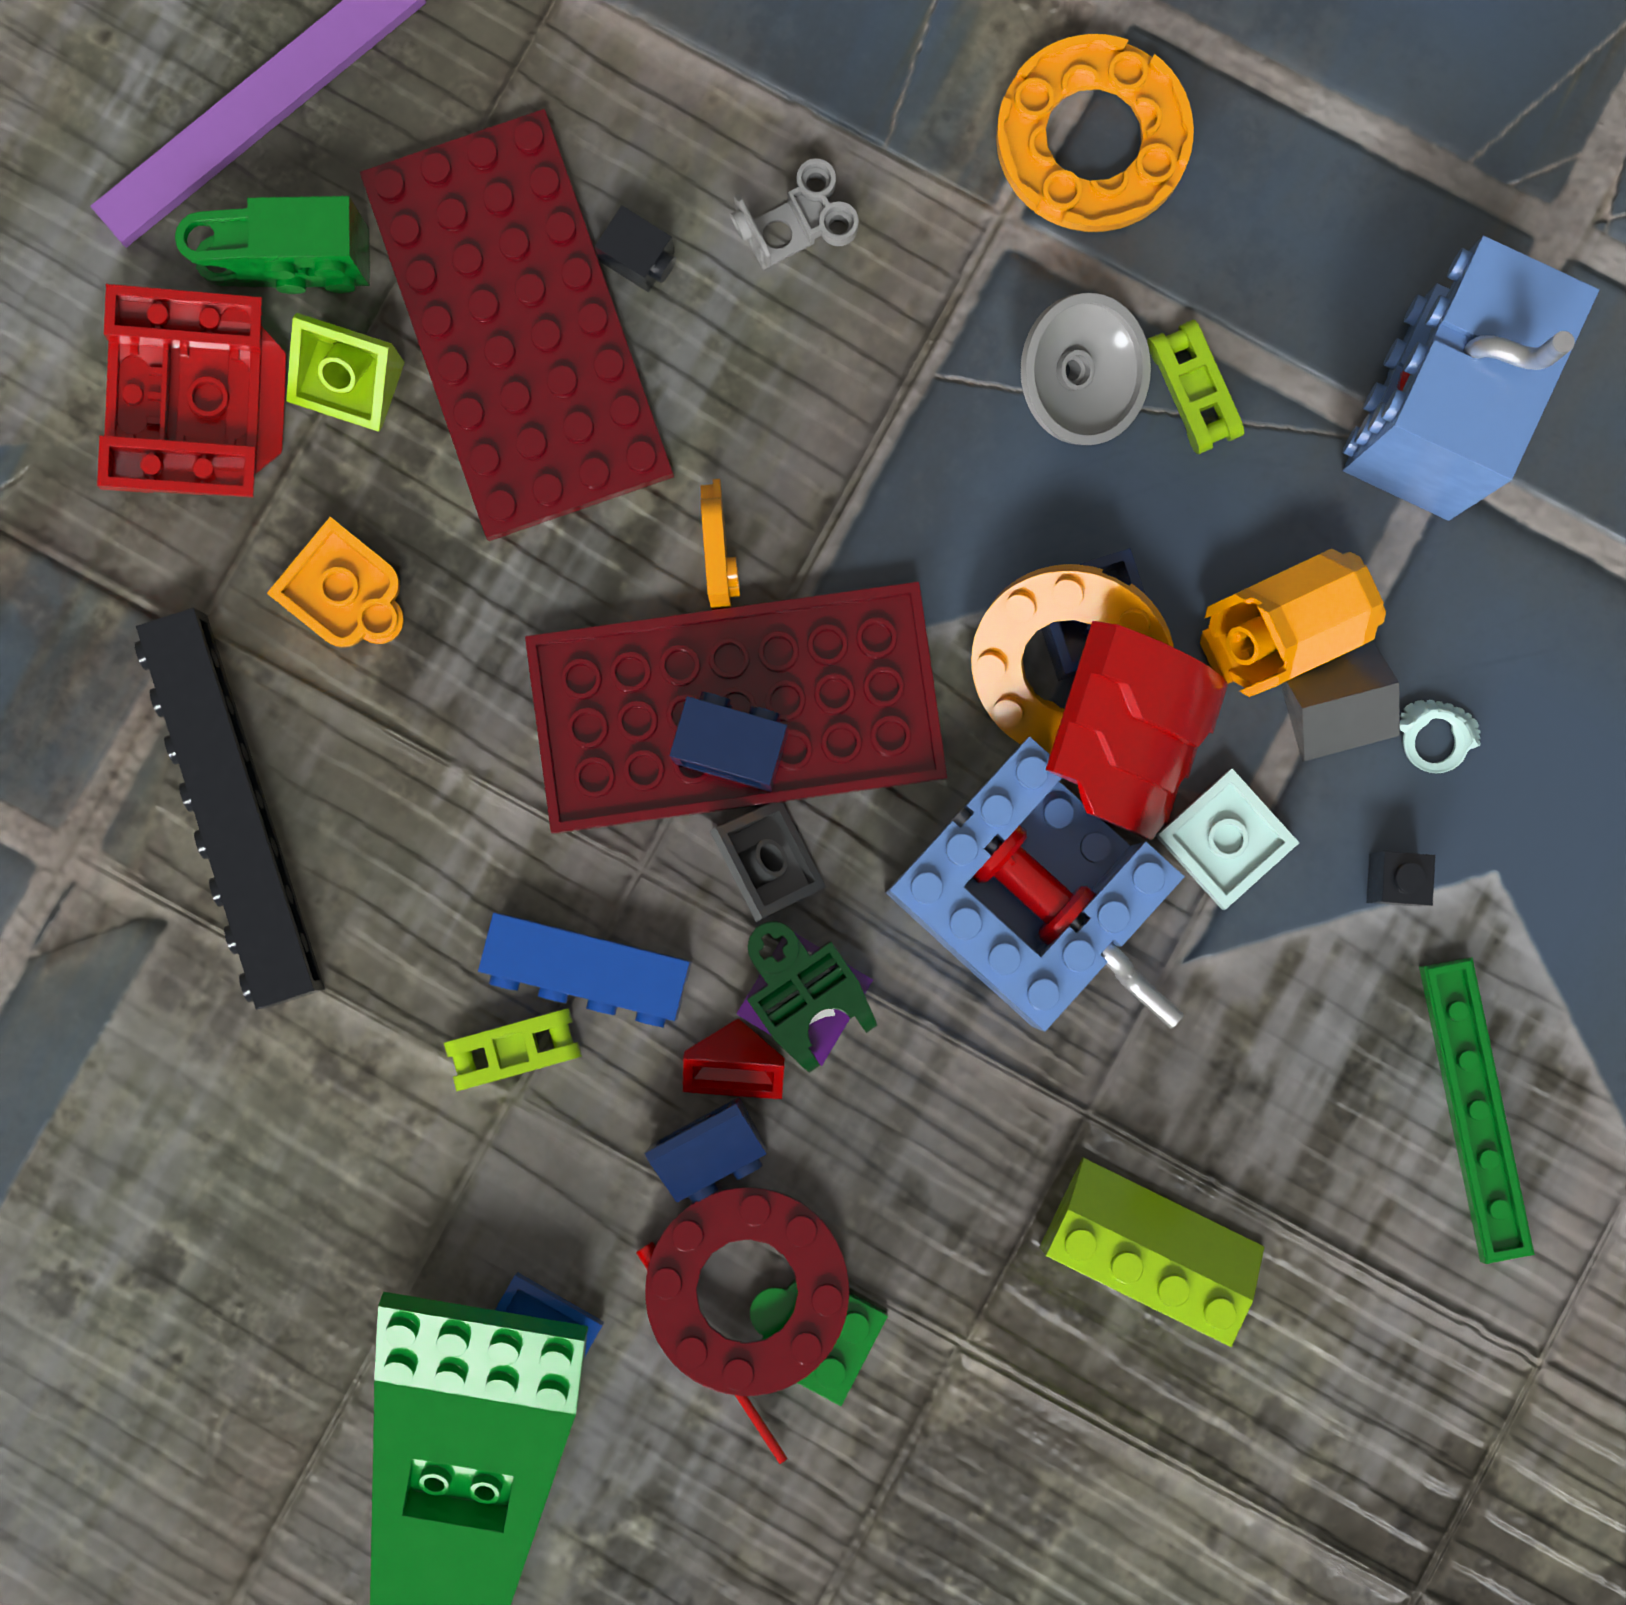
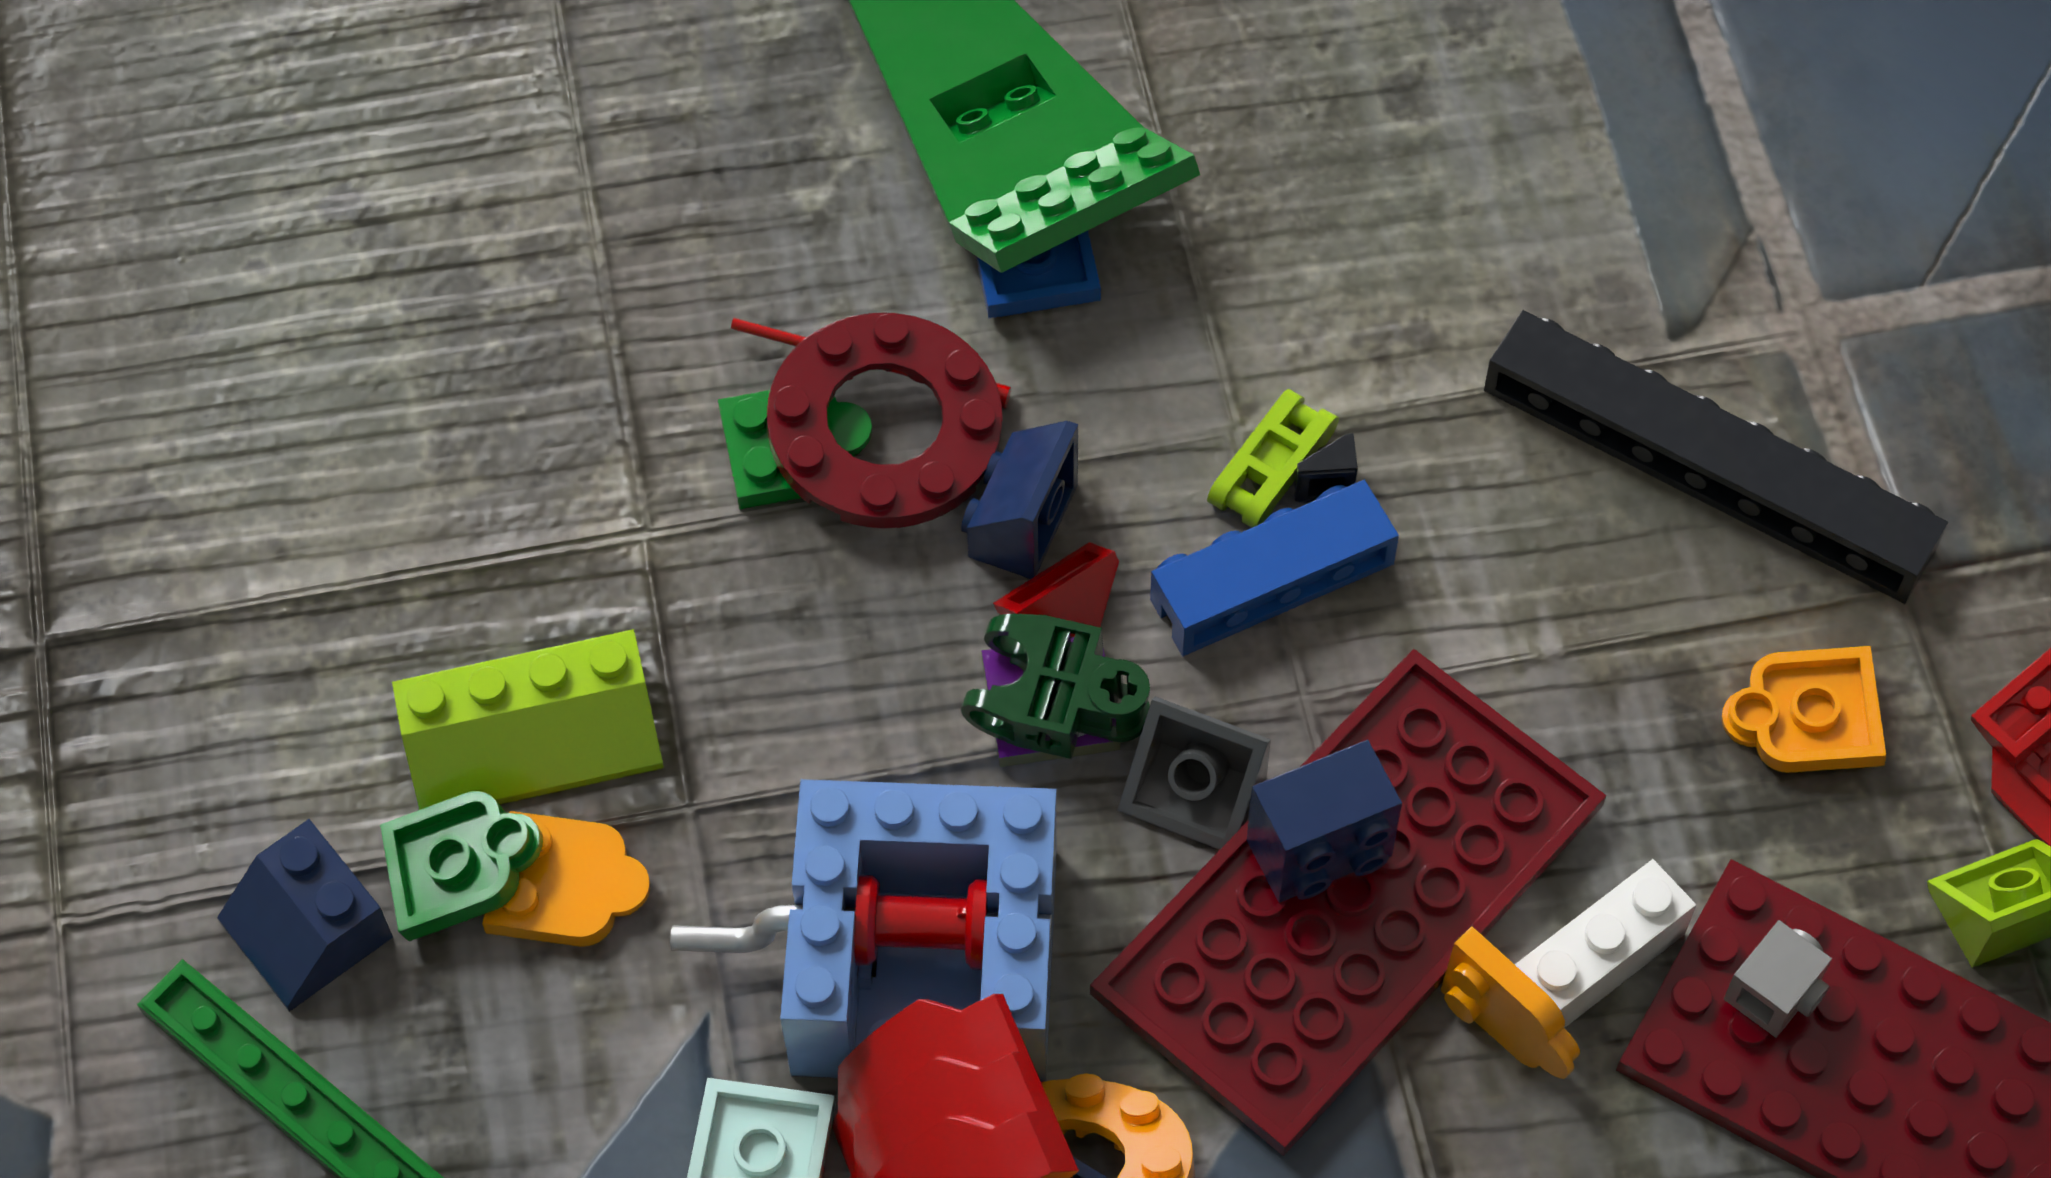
camera: 145 degrees right, 25 degrees down
(487, 1003) = (1327, 468): none -> black slope
(539, 427) = (1780, 979): none -> light grey brick
(623, 543) = (1610, 941): none -> white brick
(1208, 1125) = (572, 886): none -> light orange plate
(1272, 1188) = (456, 861): none -> plate
(1389, 1230) = (302, 916): none -> dark blue slope

